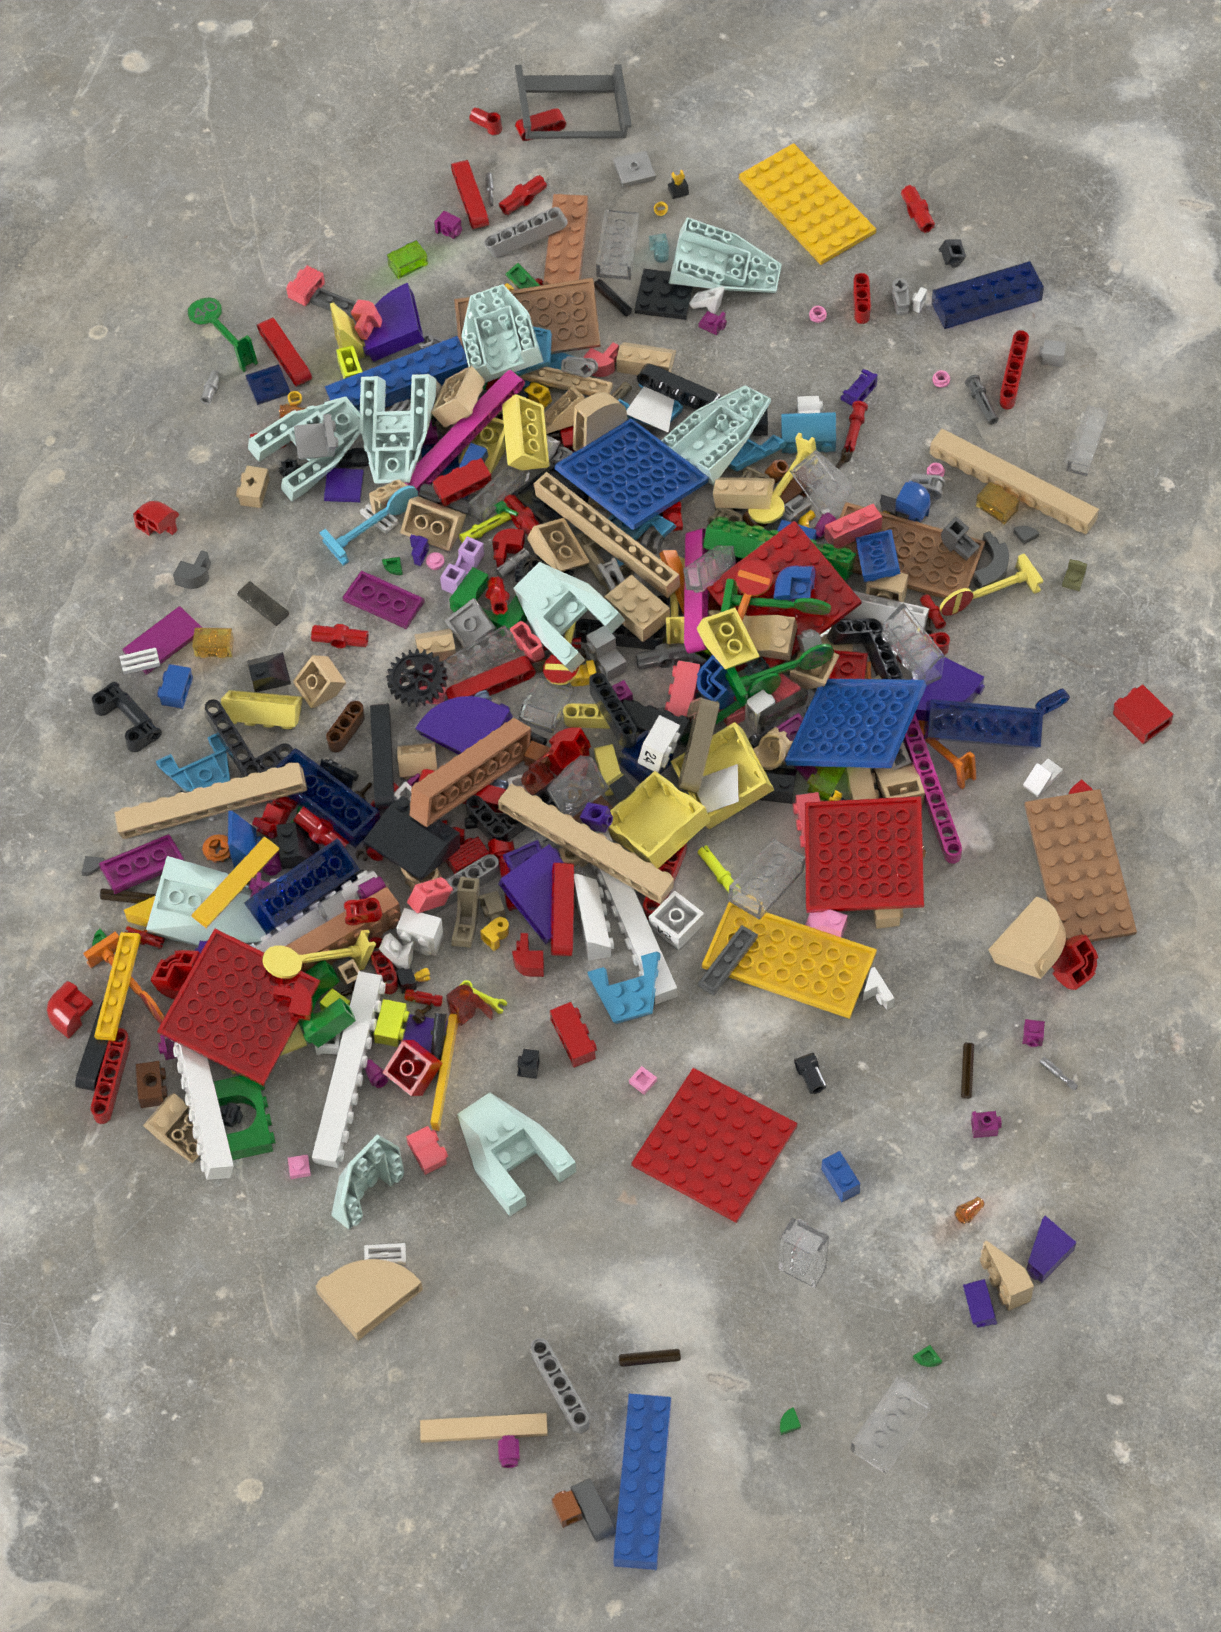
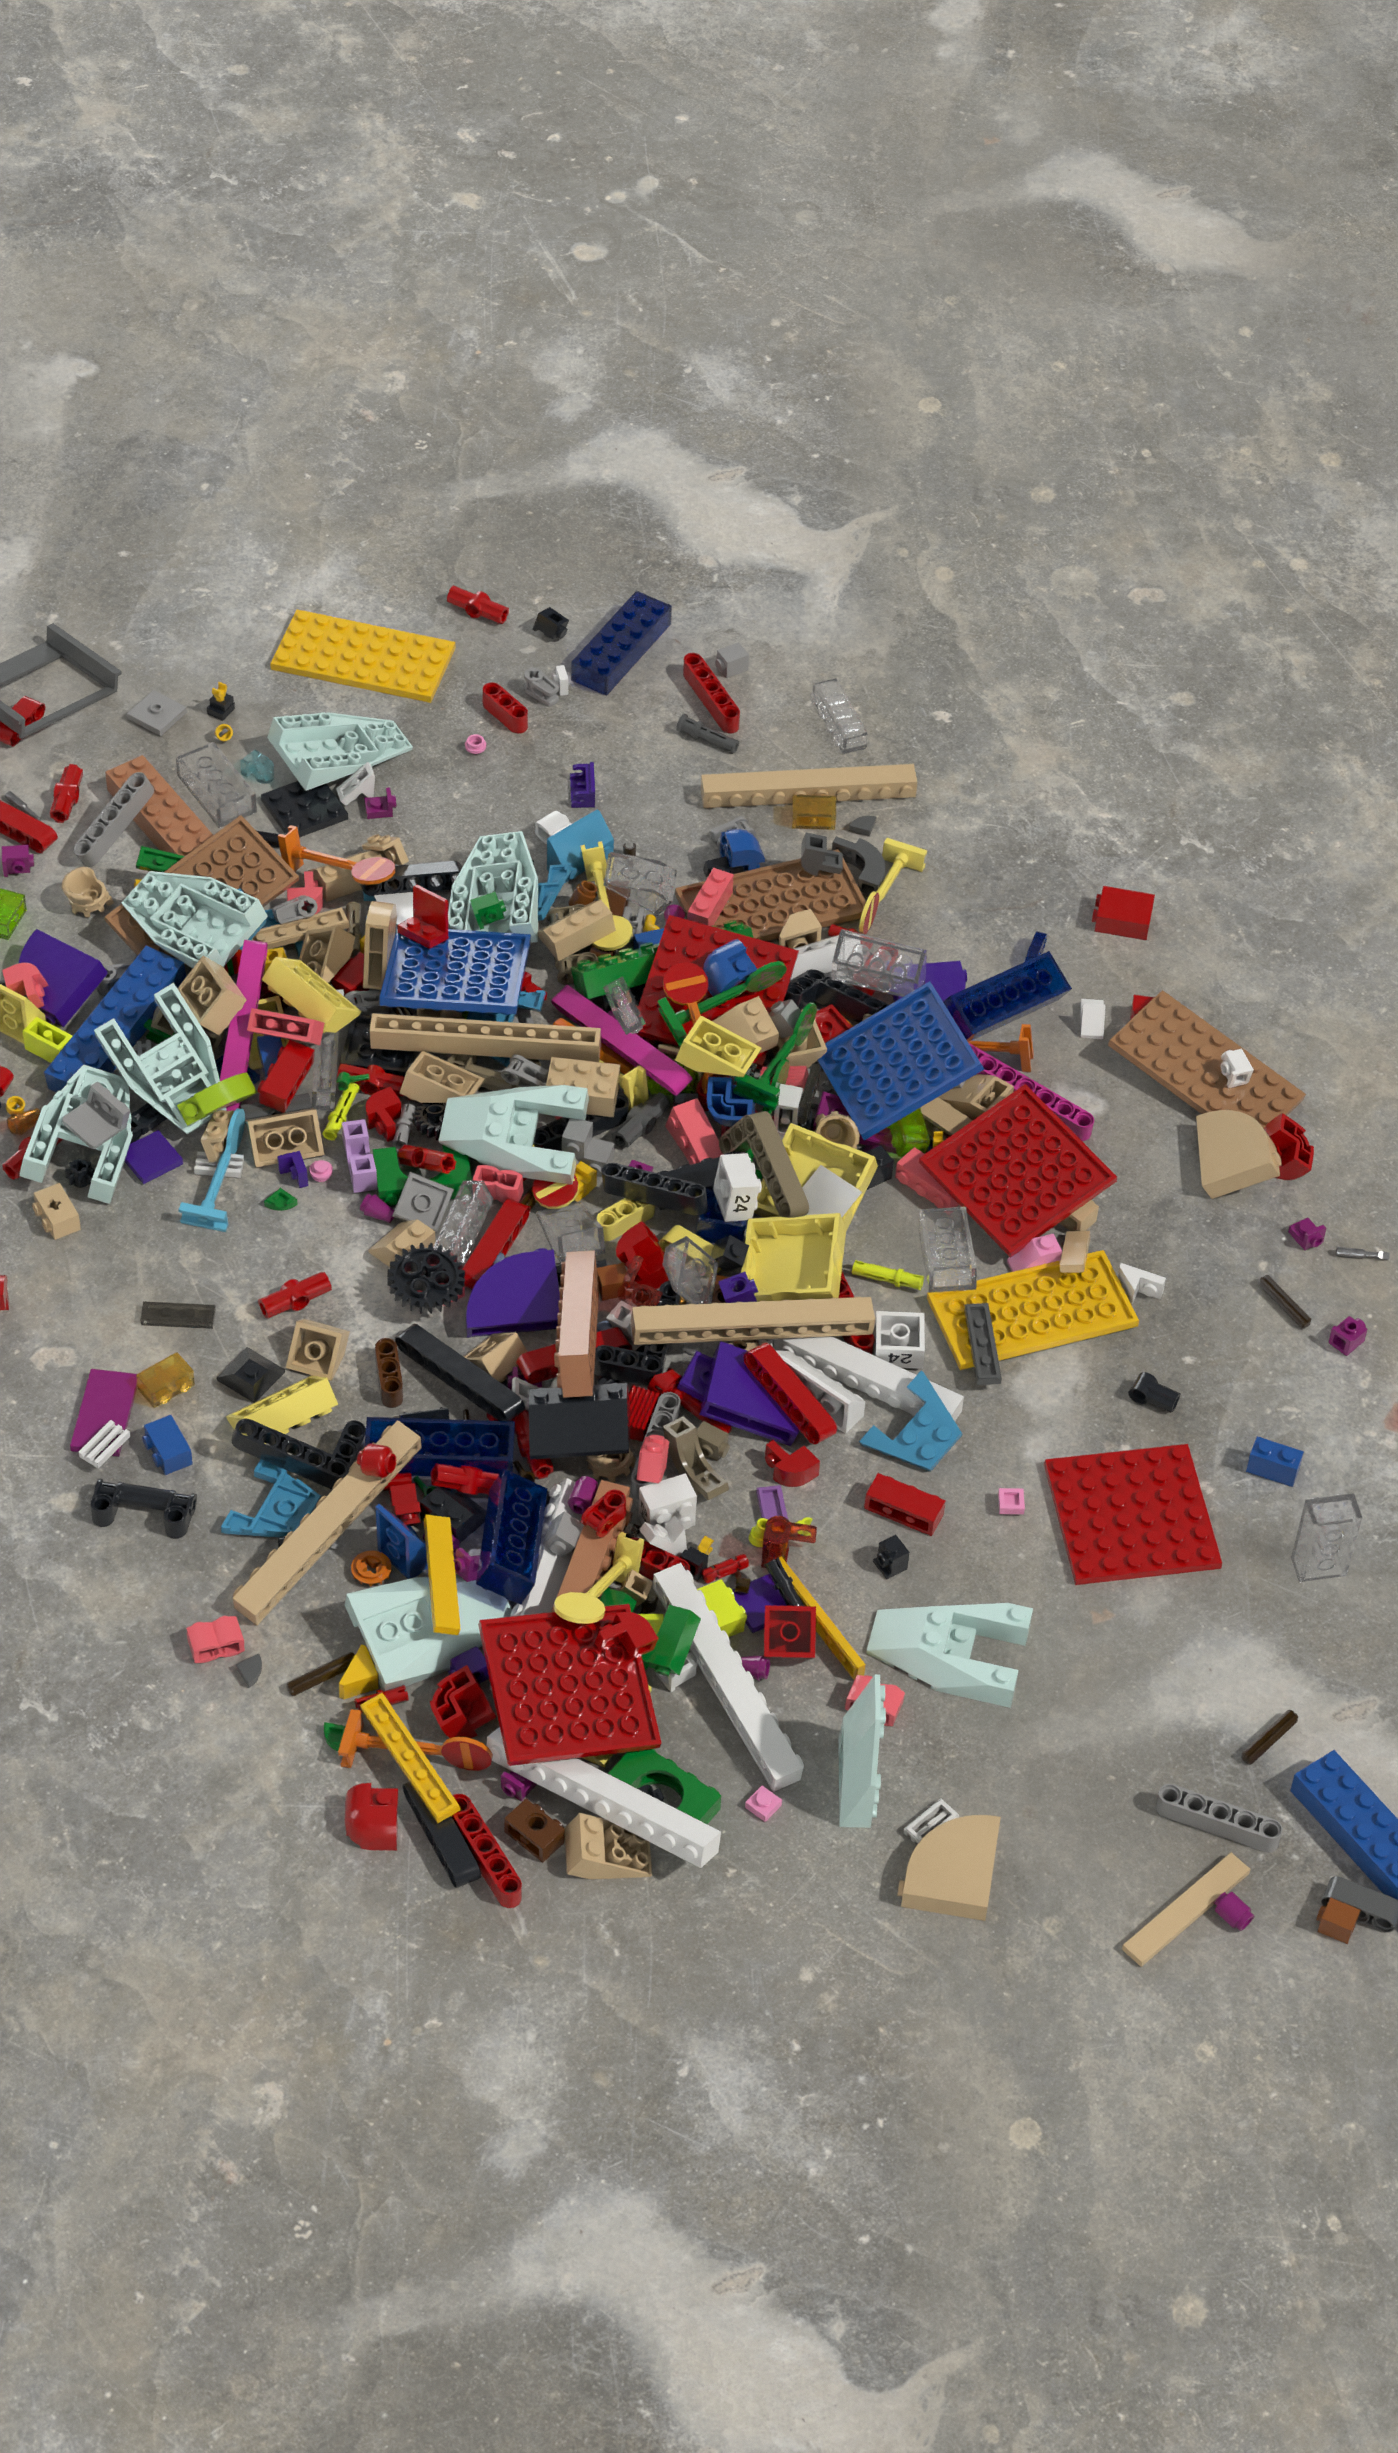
camera: 45 degrees left, 10 degrees down
(87, 831) = (215, 1639): none -> coral brick
(139, 863) = (306, 1633): magenta tile -> none
(193, 575) = (76, 1331): dark grey brick -> none
(259, 781) = (376, 1460): none -> red head
(383, 599) = (302, 1237): magenta tile -> none
(392, 930) = (632, 1530): none -> clear smoke tile
(405, 470) = (216, 1097): none -> lime arch
(442, 608) = (376, 1208): none -> magenta cone
(467, 273) = (85, 891): none -> tan hair
(484, 447) = (285, 1026): none -> coral brick
(492, 977) = (771, 1501): none -> medium lavender tile
(494, 932) = (735, 1464): yellow leg -> none
(641, 367) = (367, 871): none -> orange piece
(643, 430) = (429, 918): none -> red bracket
(677, 351) = (388, 848): none -> tan bracket
(697, 442) = (488, 909): none -> green brick
(853, 937) = (1075, 1251): none -> tan tile
(856, 420) = (609, 813): red pin -> none
(878, 555) = (764, 909): blue plate -> none
(936, 469) = (726, 815): bright pink plate -> none
(941, 379) = (650, 737): bright pink plate -> none
(1074, 575) = (943, 833): olive bracket -> none
(1092, 880) = (1236, 1068): none -> white brick

